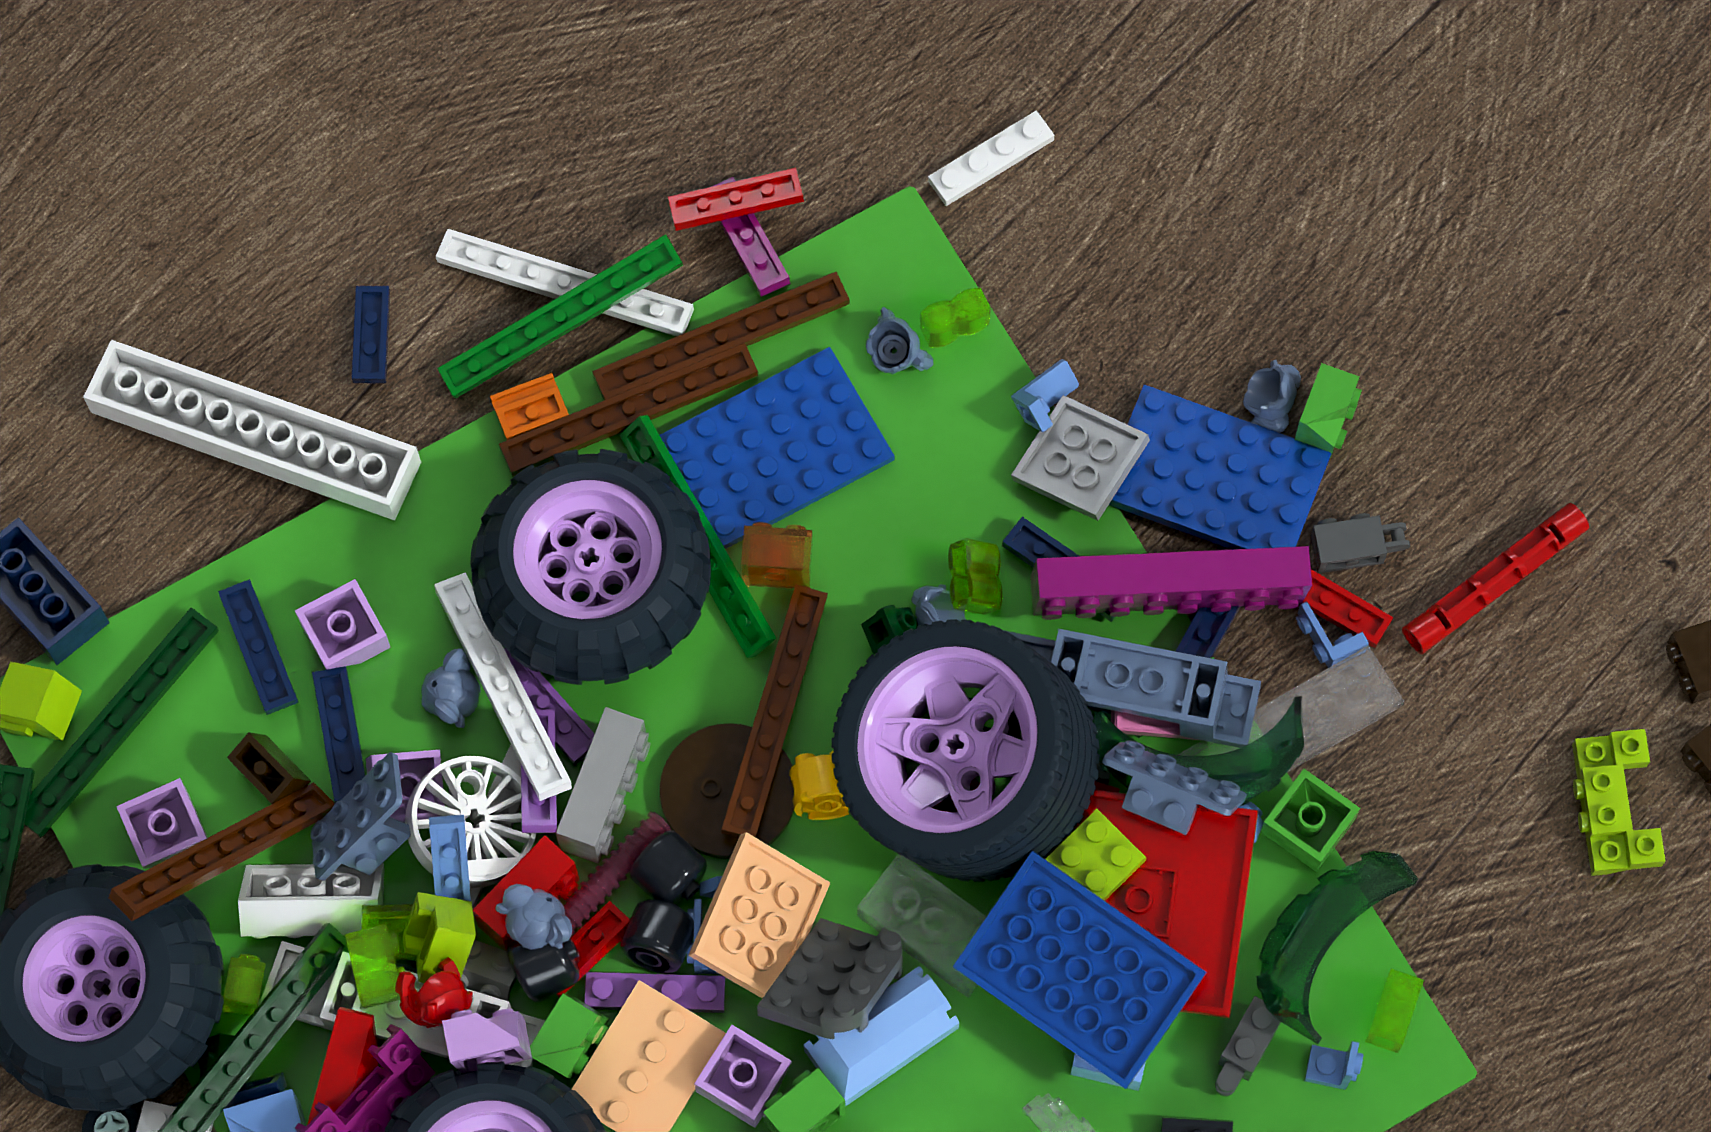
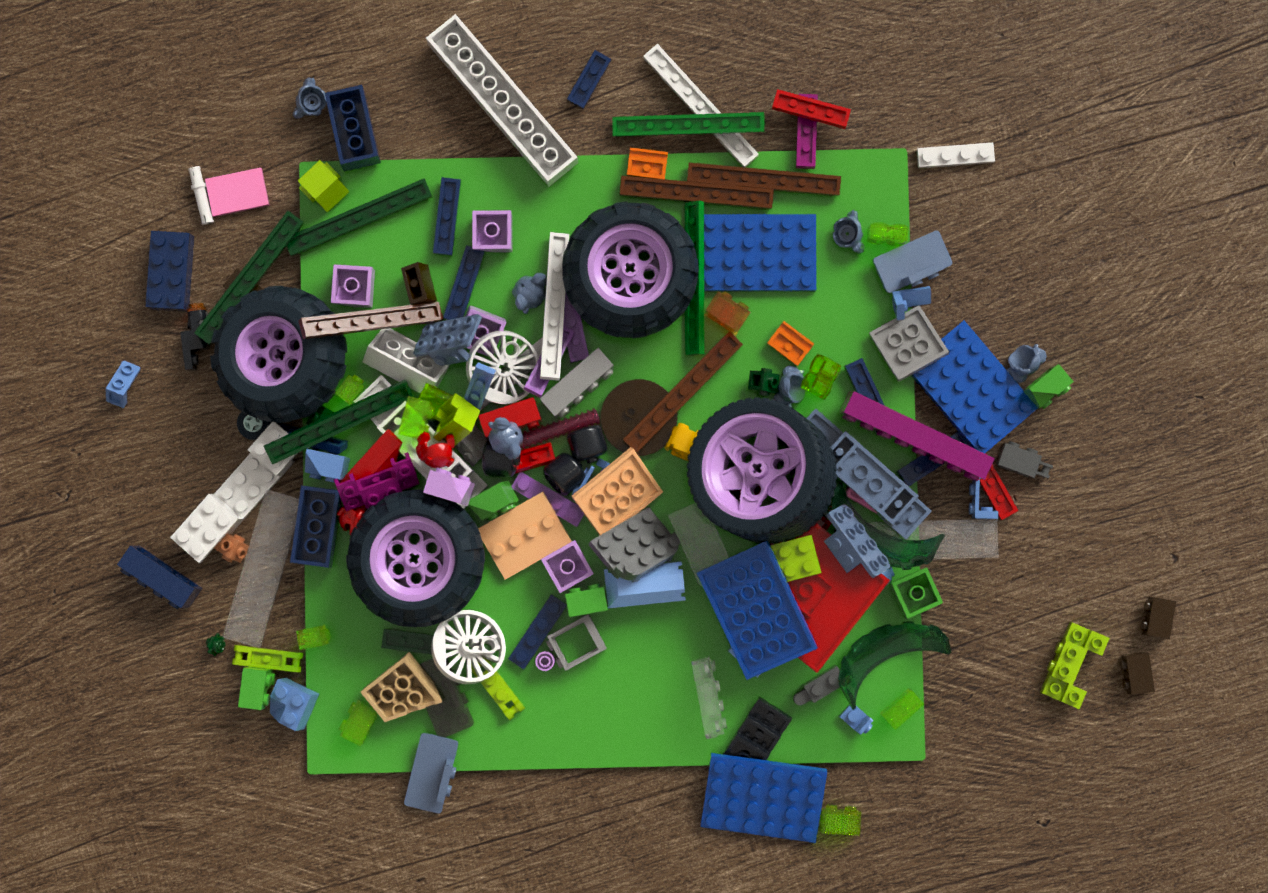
camera: 30 degrees right, 15 degrees up
(900, 554) = (790, 343): none -> orange plate
(1016, 339) = (912, 262): none -> sand blue bracket
(1495, 578) = (1082, 518): red piece -> none

